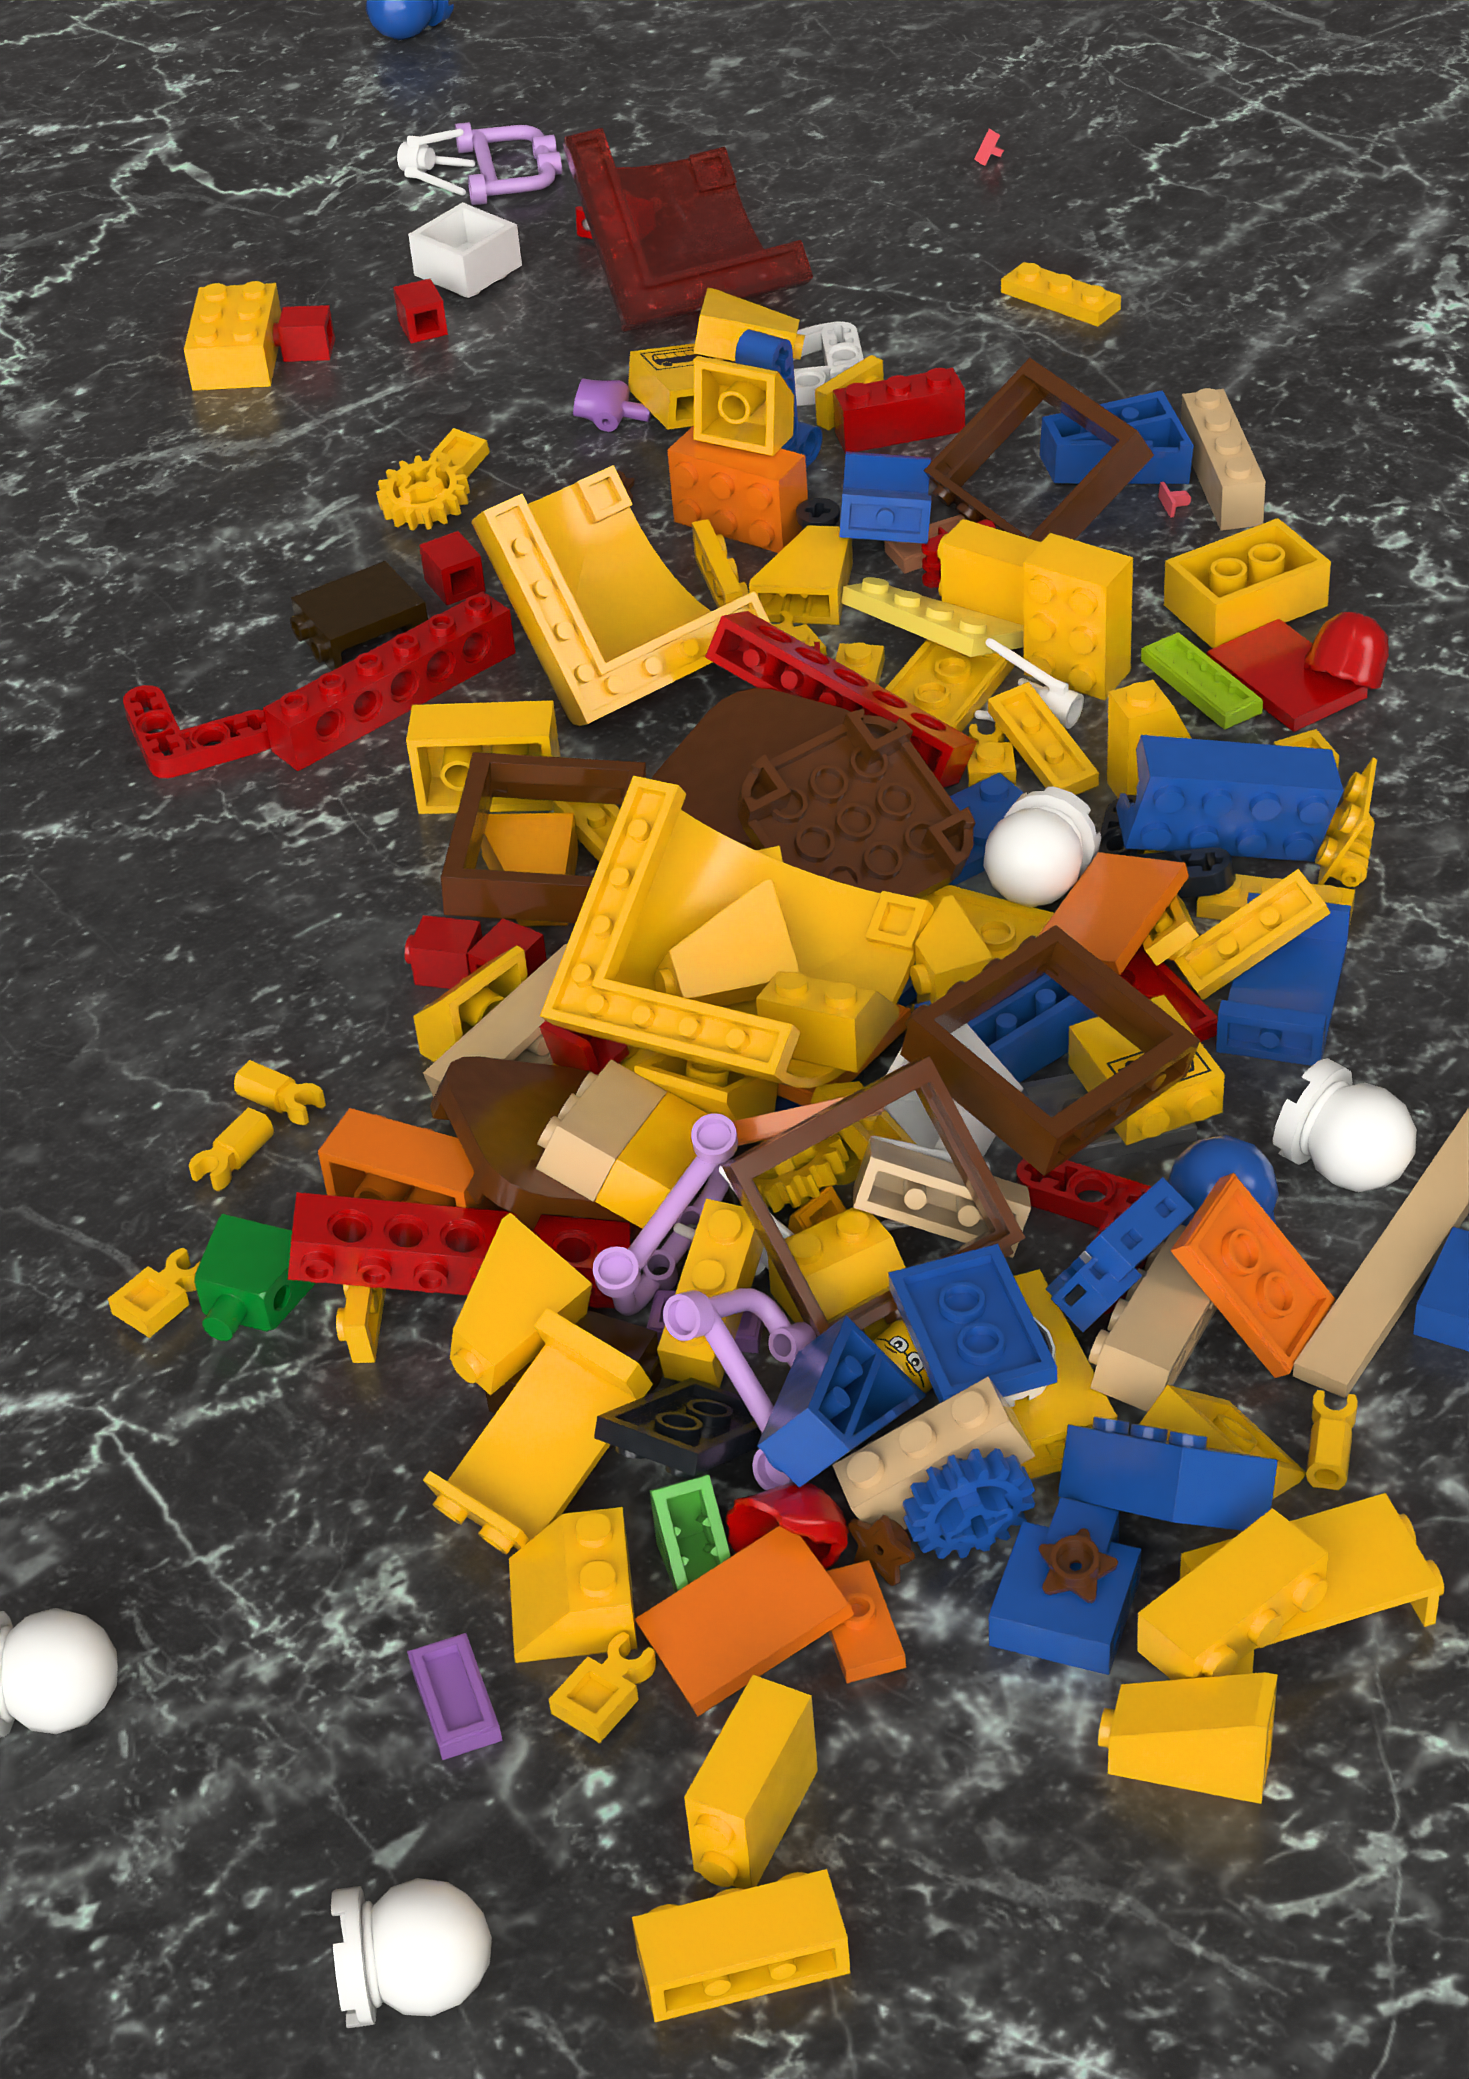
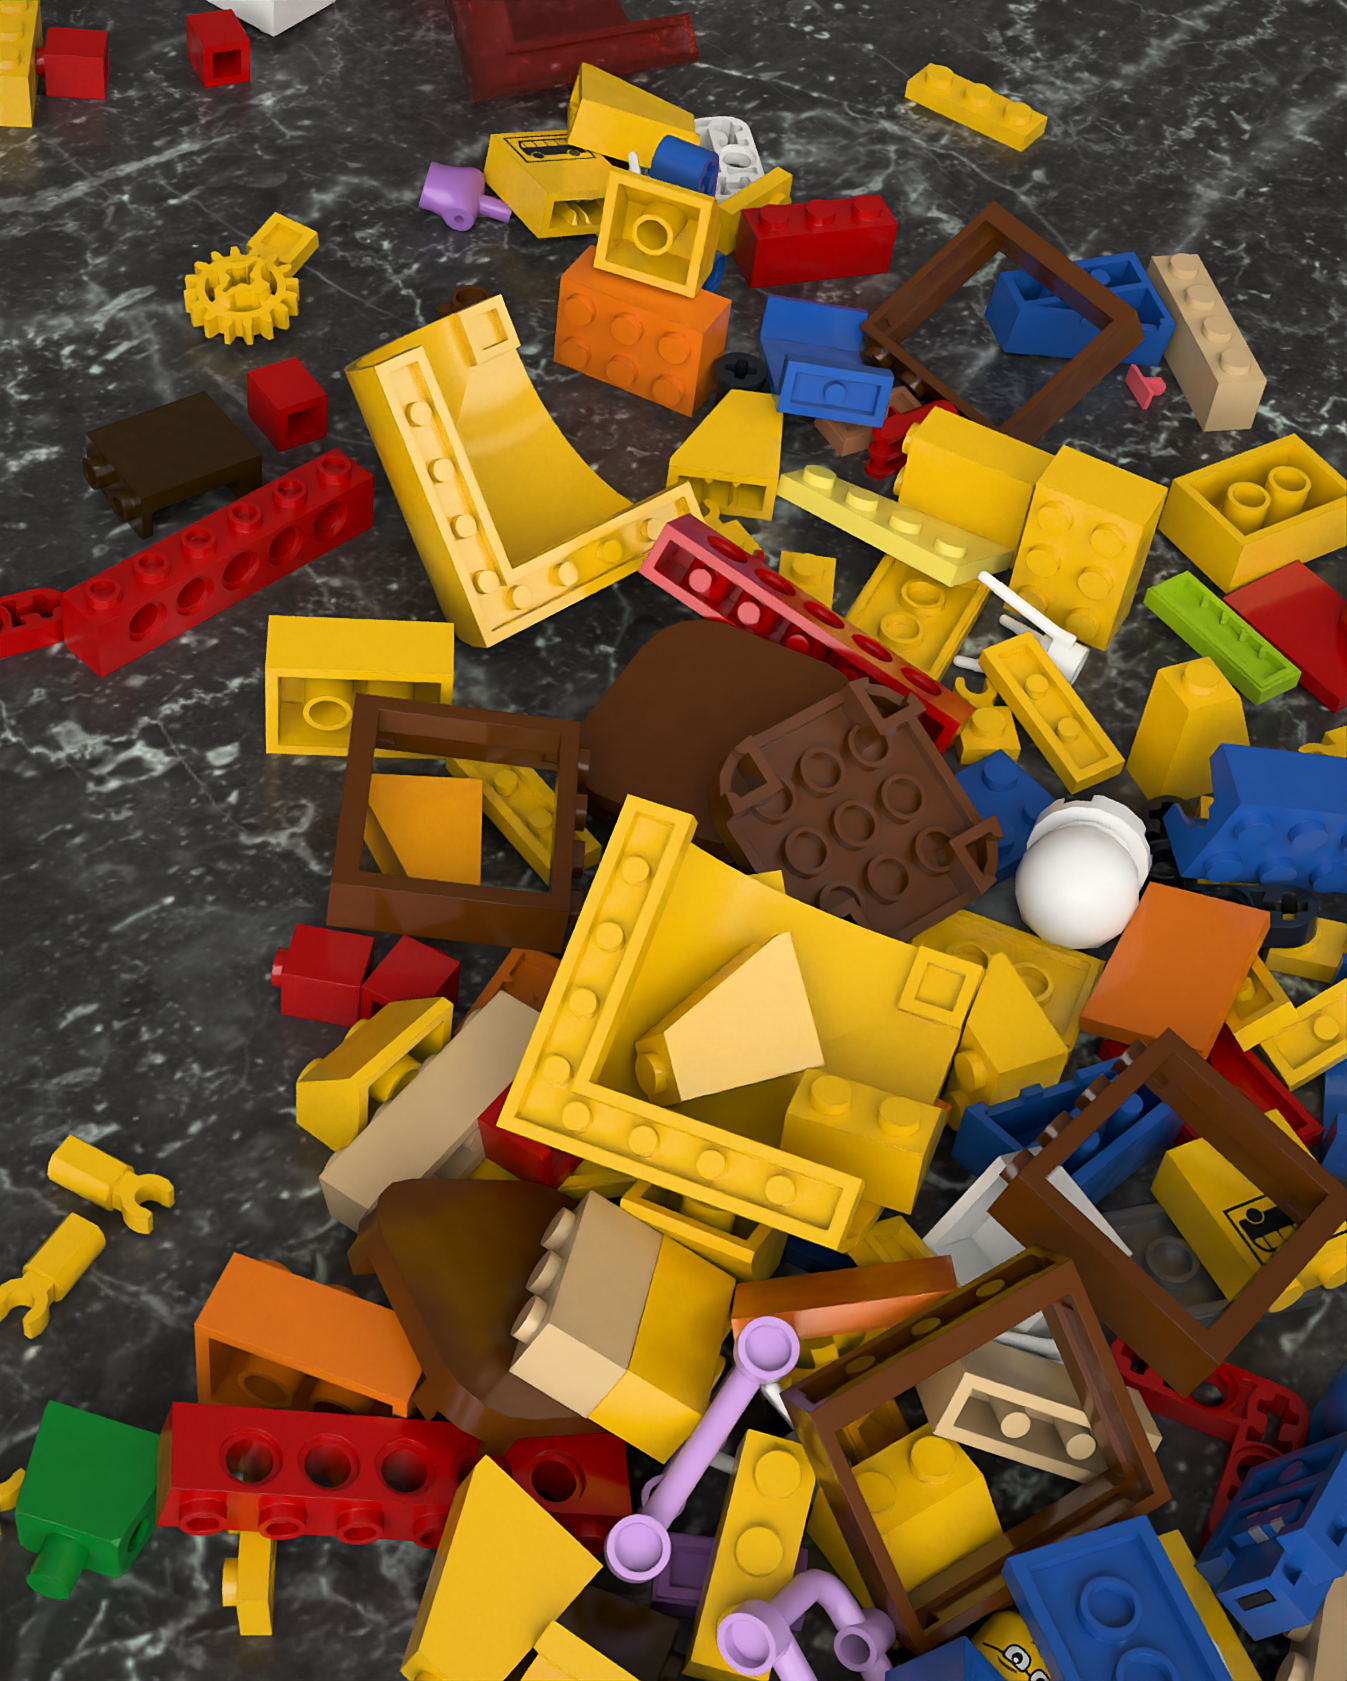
camera: 15 degrees left, 5 degrees up
(717, 570) = (622, 438): yellow plate -> none

